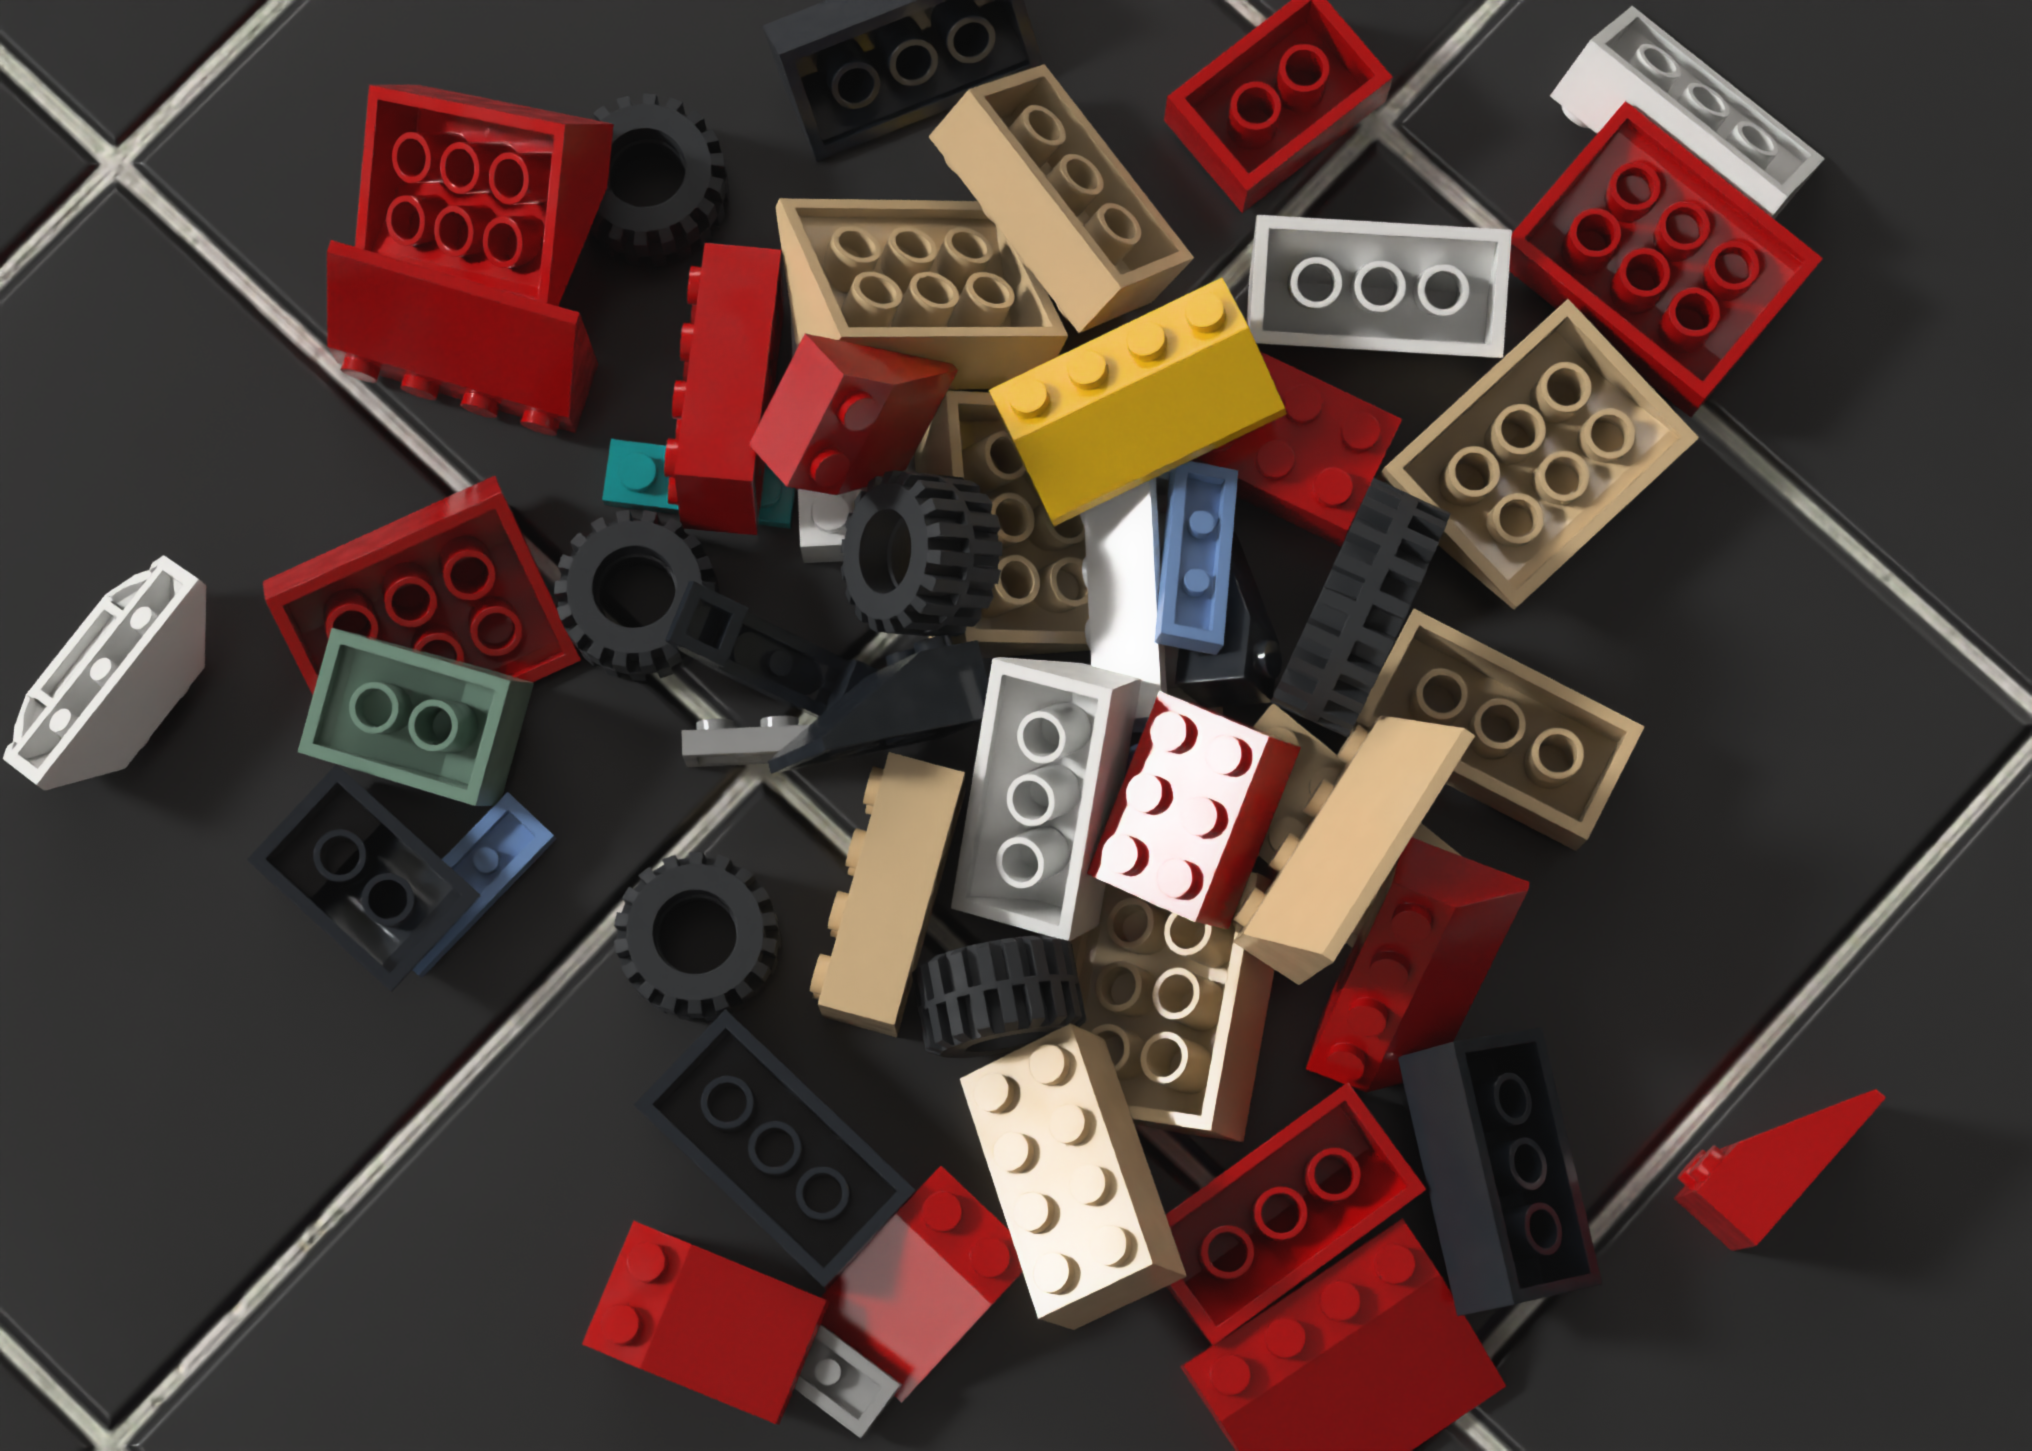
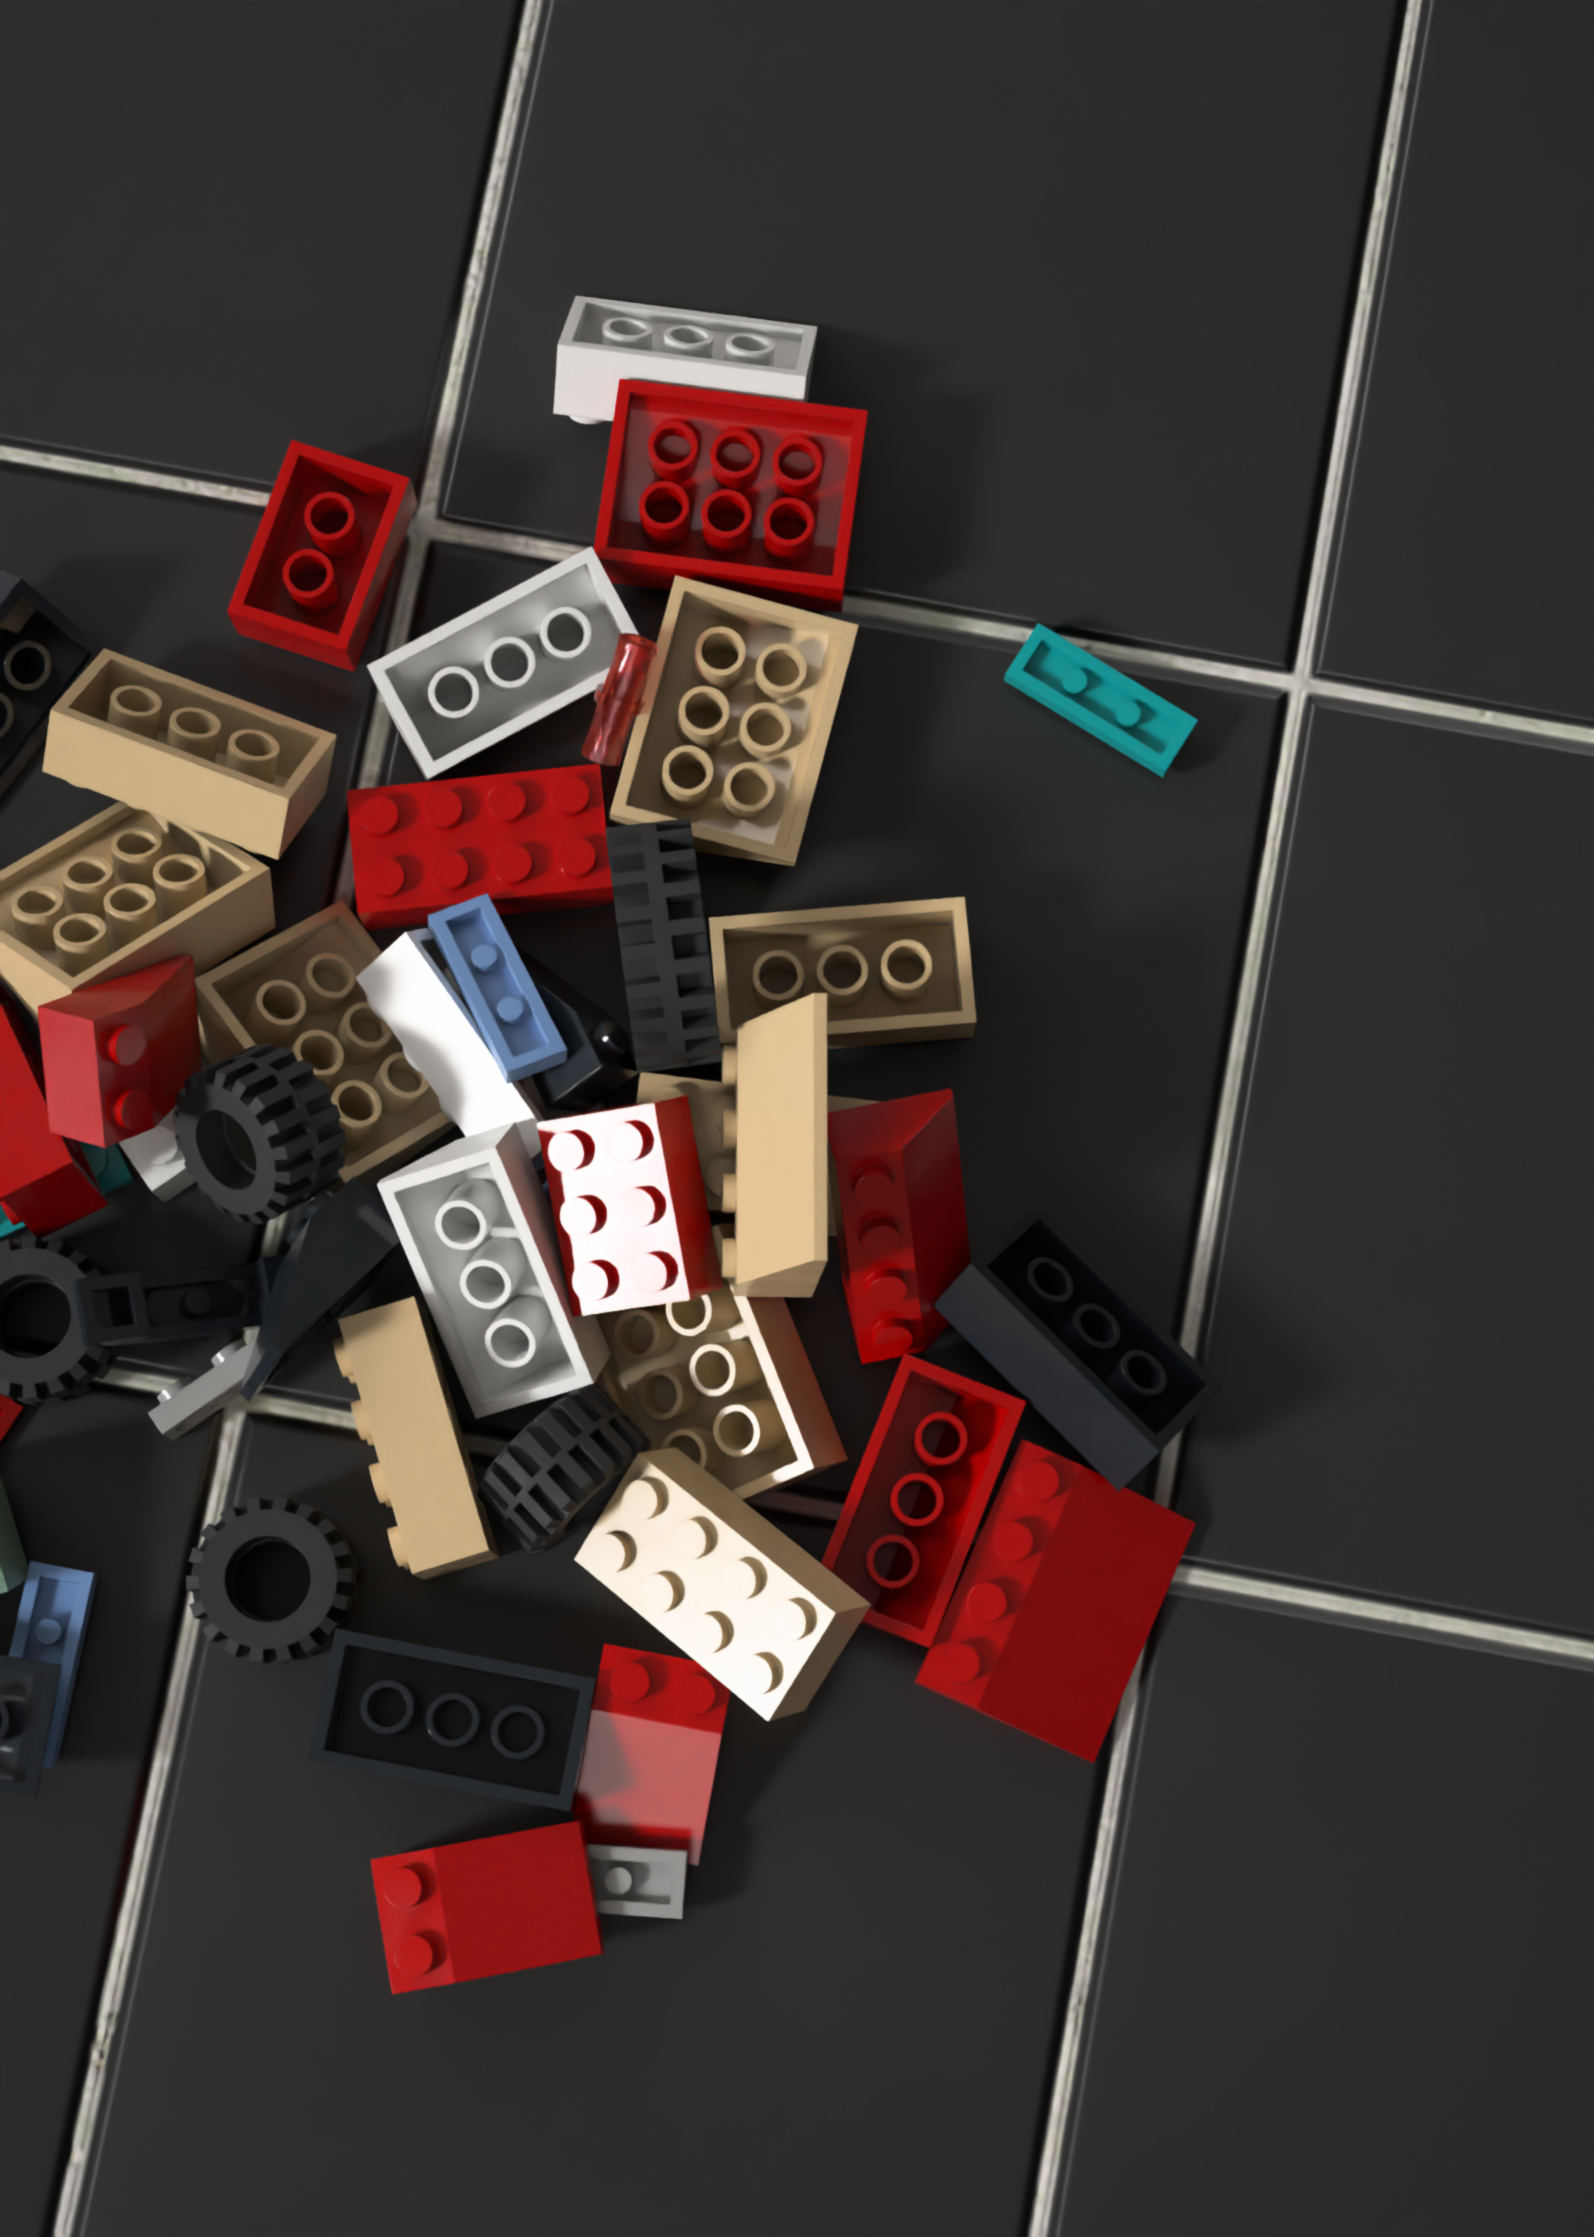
camera: 30 degrees left, 0 degrees up
(1138, 401) = (364, 887): yellow slope -> none
(1453, 375) = (619, 699): none -> clear red pin
(1755, 1181) = (1294, 1220): red slope -> none
(1869, 631) = (1100, 700): none -> teal plate

